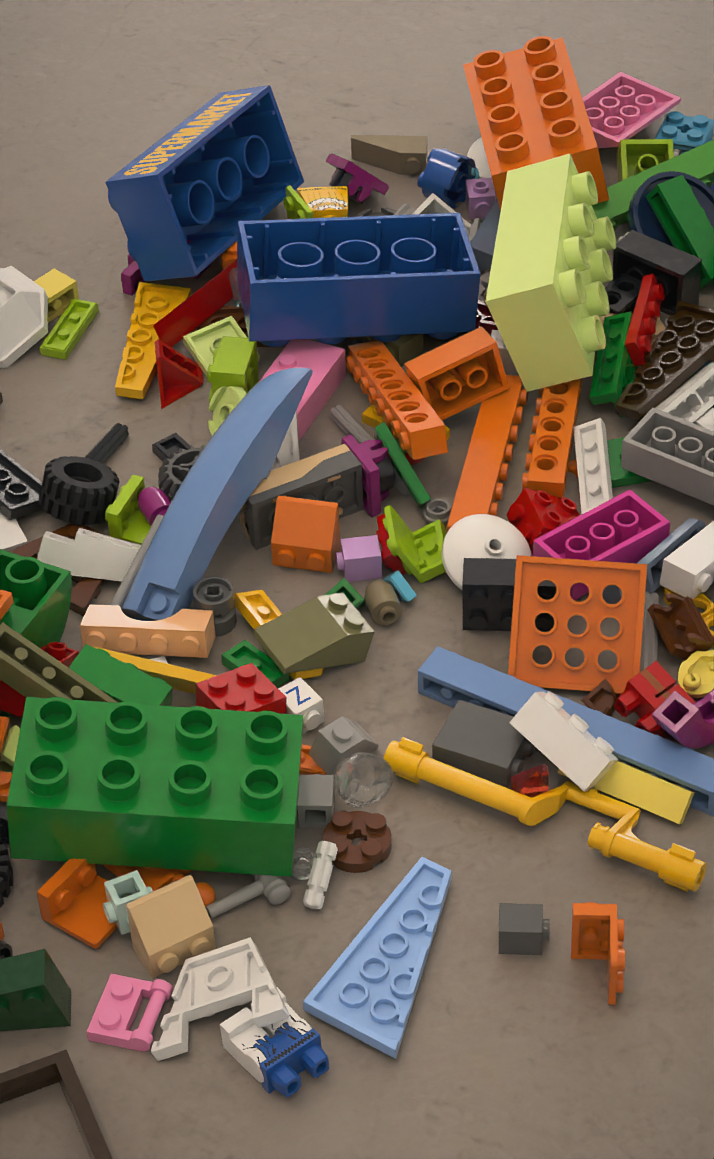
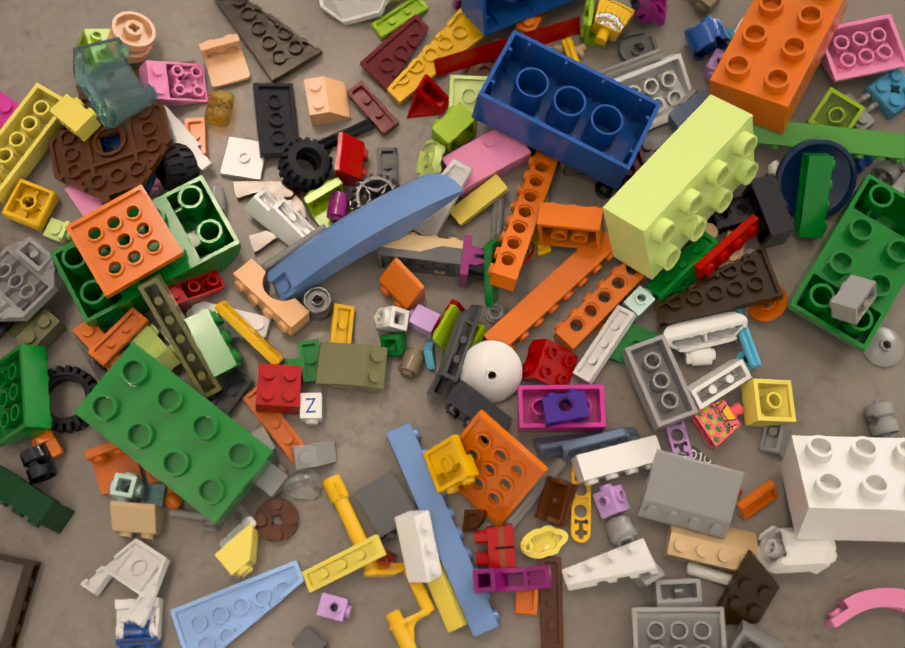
camera: 30 degrees right, 30 degrees up
(44, 434) = (326, 100): none -> light nougat slope
(93, 357) = (392, 55): none -> dark red wing
(109, 412) = (372, 108): none -> dark red plate
(119, 1008) = (84, 544): bright pink plate -> none
(128, 457) = (350, 160): none -> red slope
(320, 570) = (391, 319): none -> white brick
(323, 422) = (479, 200): none -> light yellow tile
(345, 883) = (240, 553): none -> light yellow slope
(433, 562) = (455, 352): none -> dark grey wedge
(487, 815) = (344, 563): none -> light yellow plate
(515, 876) = (334, 607): none -> lavender brick
(527, 646) = (450, 465): none -> yellow plate
(594, 408) = (639, 301): none -> light aqua brick
(609, 522) = (555, 416): none -> dark purple brick

